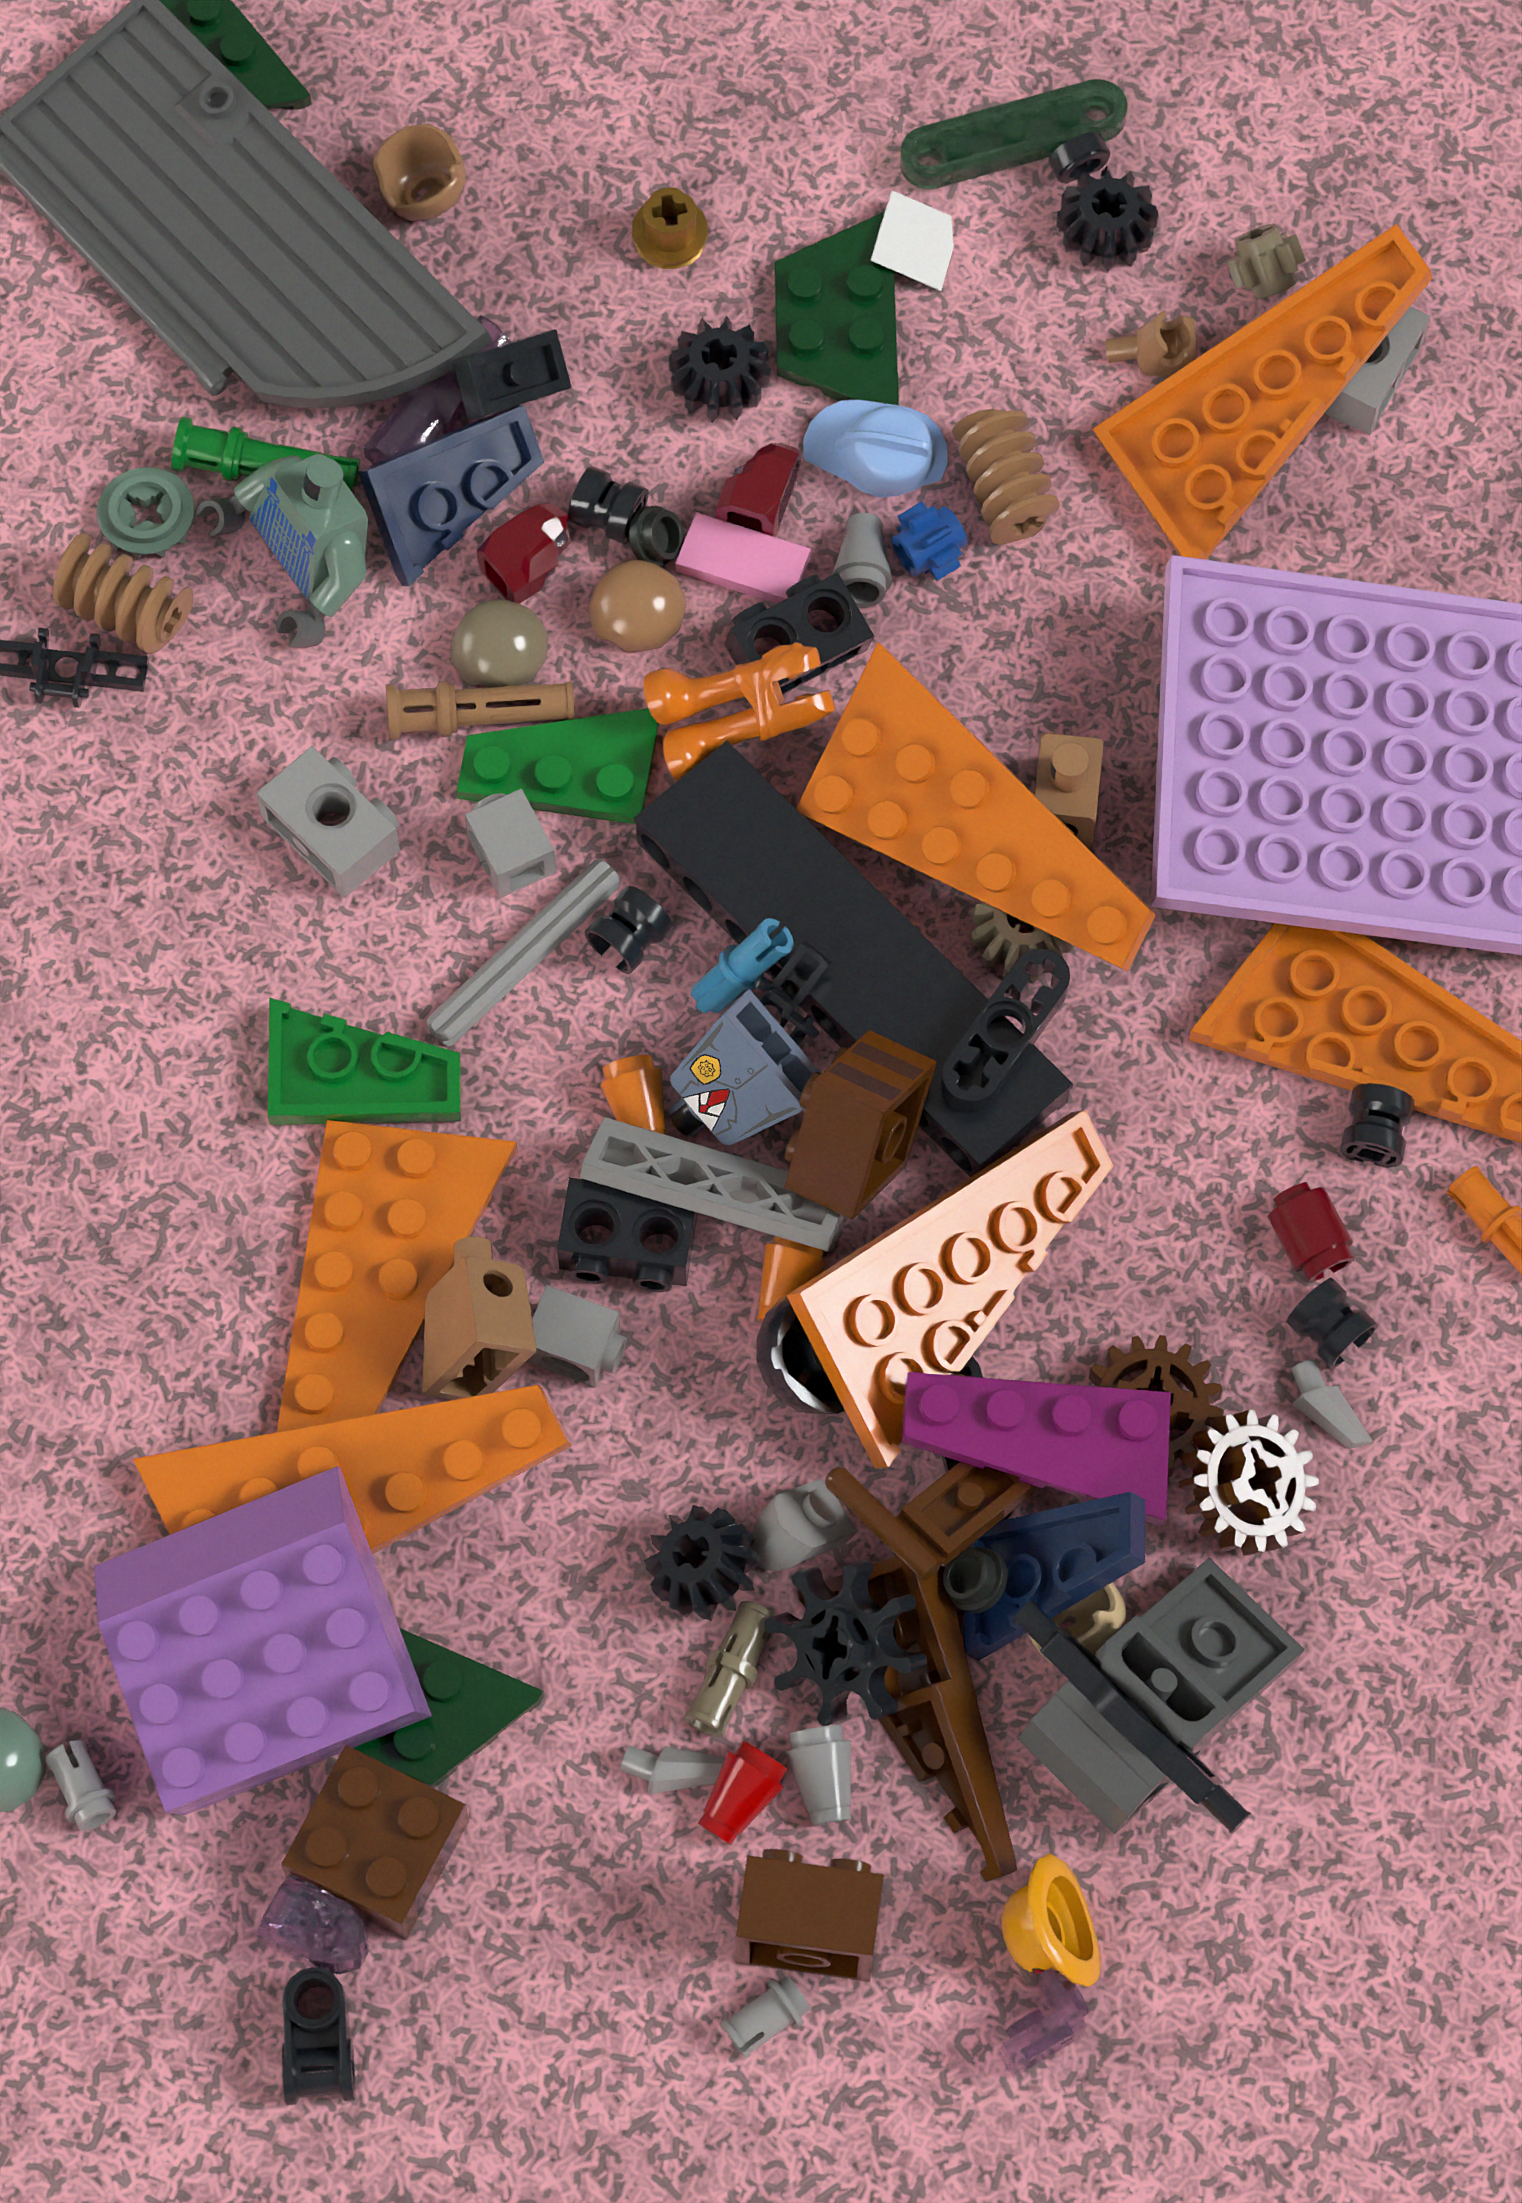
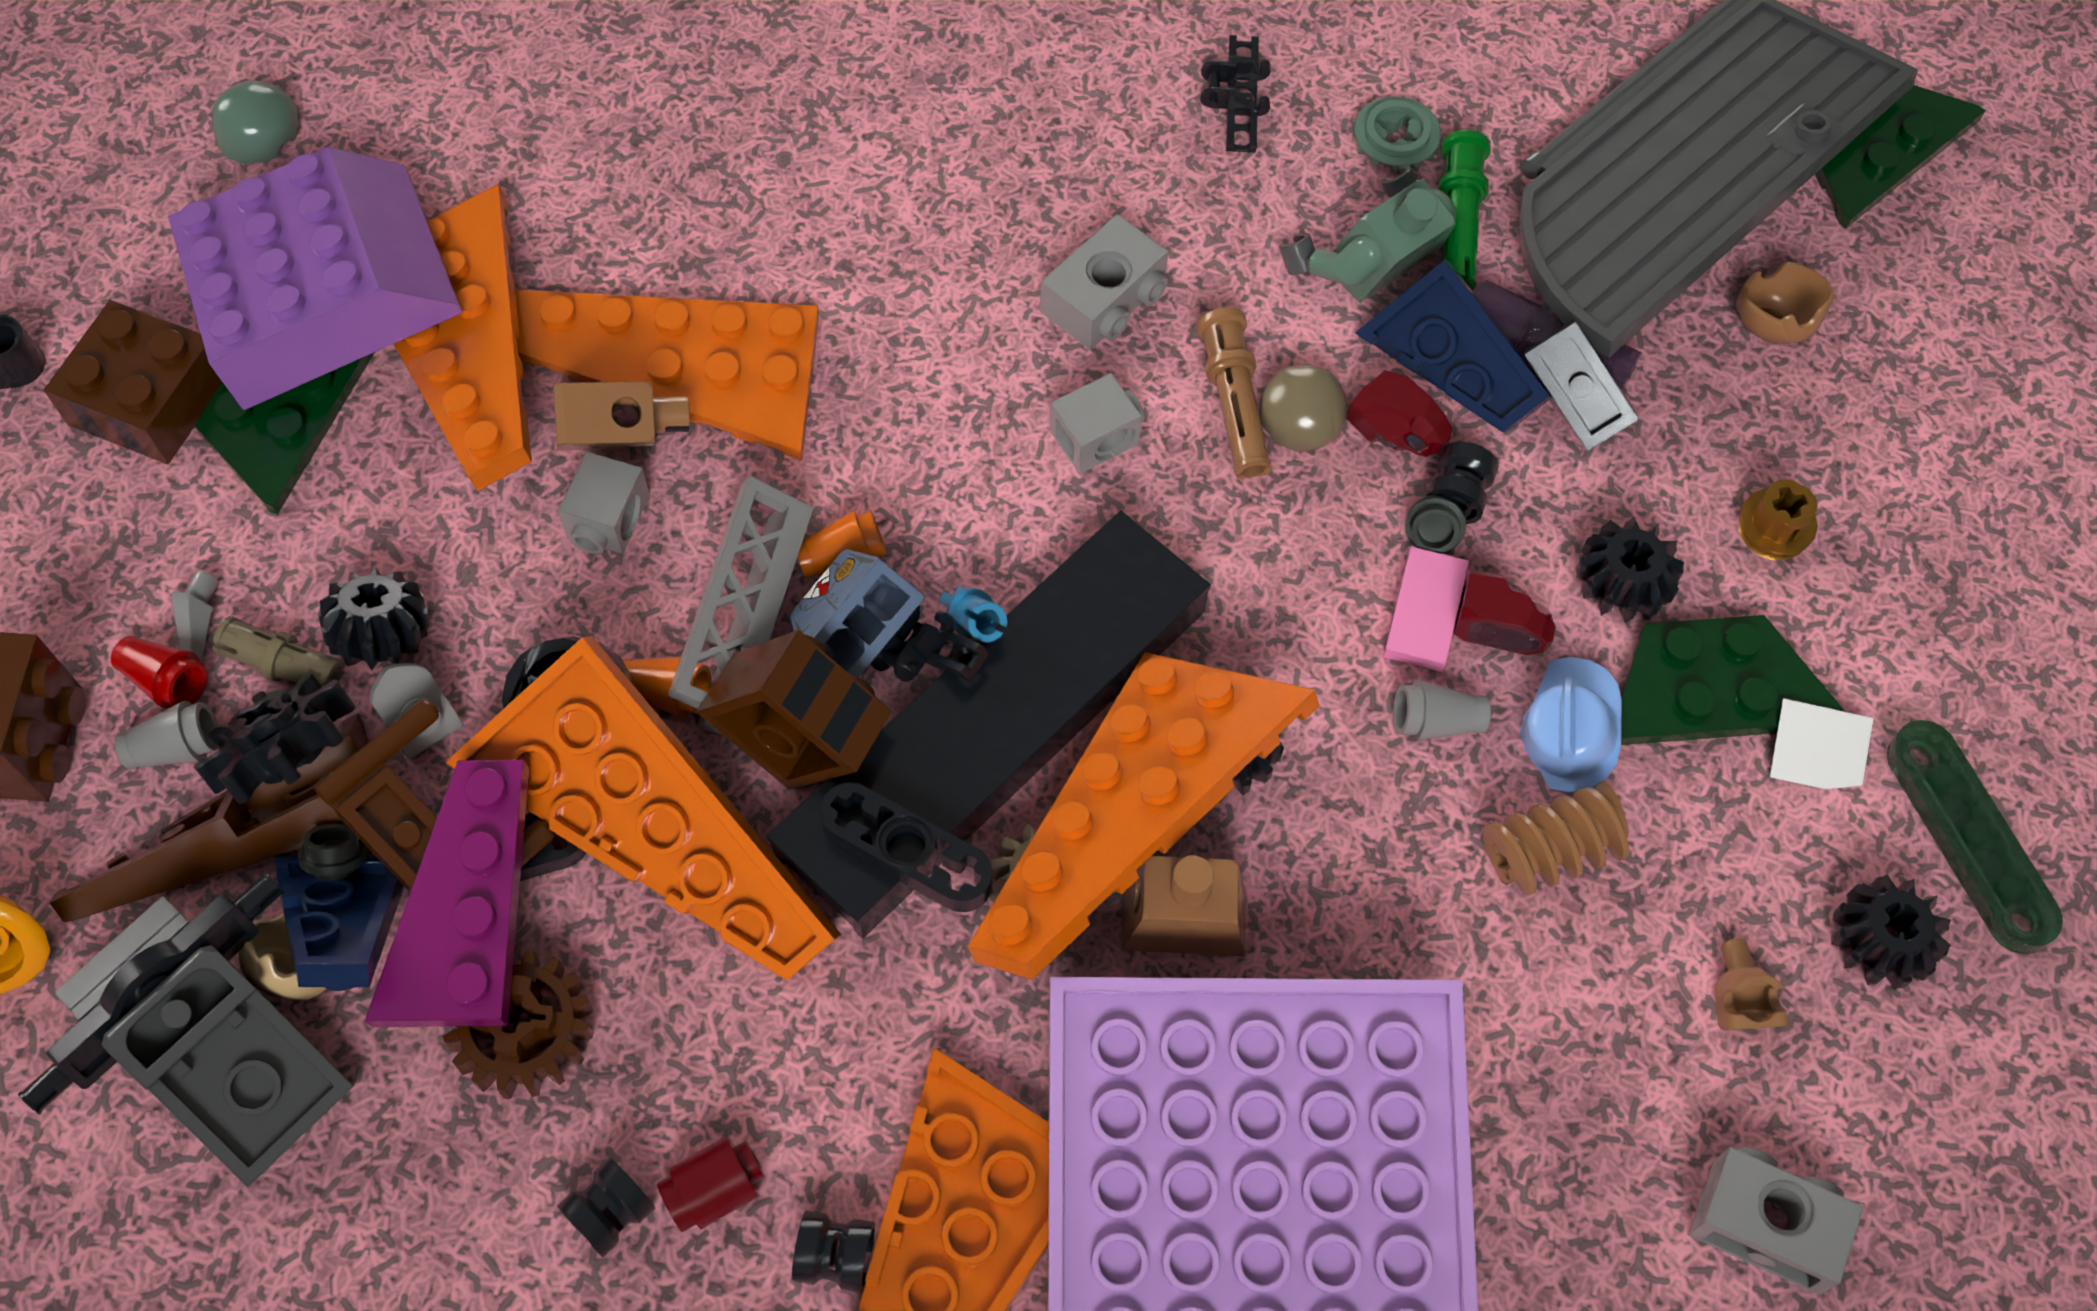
camera: 85 degrees right, 5 degrees down
(86, 1797) = (221, 177): light grey pin -> none
(118, 599) = (1308, 111): medium nougat piece -> none
(314, 1928) = (56, 336): rock -> none
(354, 1075) = (864, 323): green wing -> none
(523, 952) = (994, 449): light grey axle -> none
(568, 766) = (1186, 474): green wing -> none
(630, 927) = (1015, 526): black wheel -> none
(631, 1222) = (694, 541): black brick -> none
(637, 606) = (1360, 518): medium nougat hair -> none
(676, 697) = (1240, 612): orange piece -> none
(789, 624) = (1329, 656): black brick -> none
(929, 541) = (1468, 768): blue gear -> none
(1082, 153) = (1961, 901): black tile -> none
(1233, 416) = (1675, 1070): orange wing -> none
(1248, 1482) = (440, 1146): gear -> none
(1266, 261) = (1876, 1101): dark tan gear -> none
(1327, 1406) = (521, 1210): light grey bar -> none

